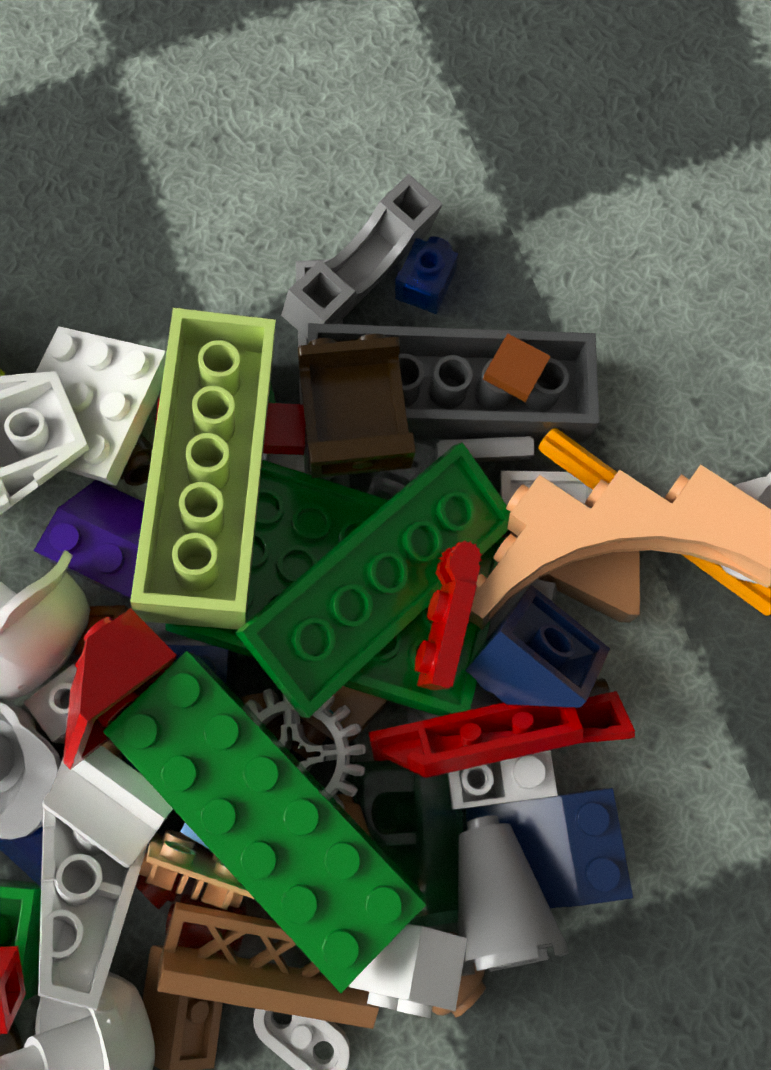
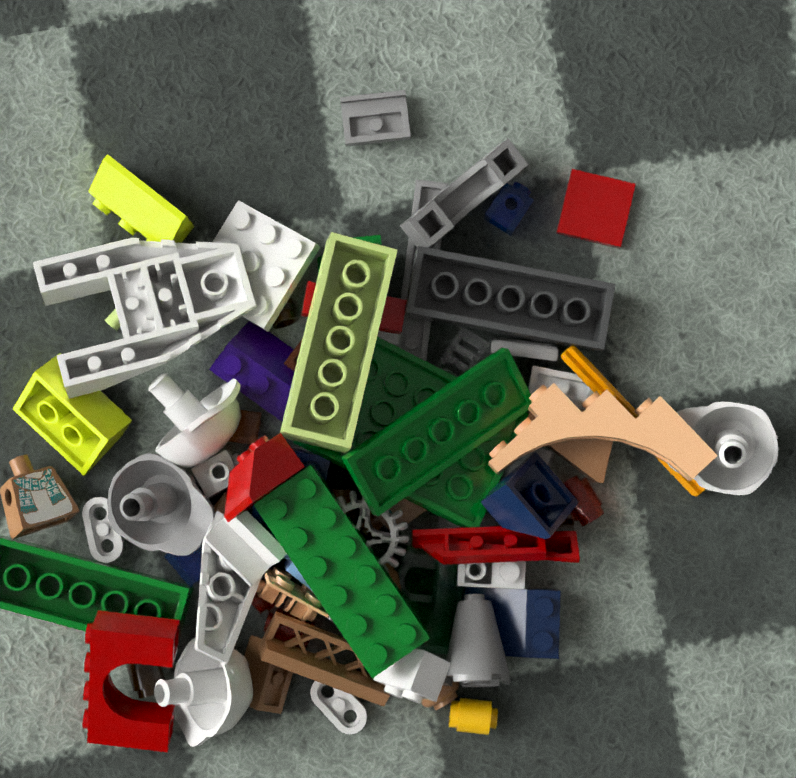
camera: 10 degrees right, 10 degrees up
(229, 195) = (375, 118): none -> light grey plate
(354, 406) = (439, 314): dark brown panel -> none
(450, 615) = (477, 465): red hinge -> none
(516, 367) = (554, 302): dark orange tile -> none
(516, 1016) = (473, 716): none -> yellow brick
(543, 259) = (596, 208): none -> red tile
(625, 652) = (589, 503): none -> clear red brick

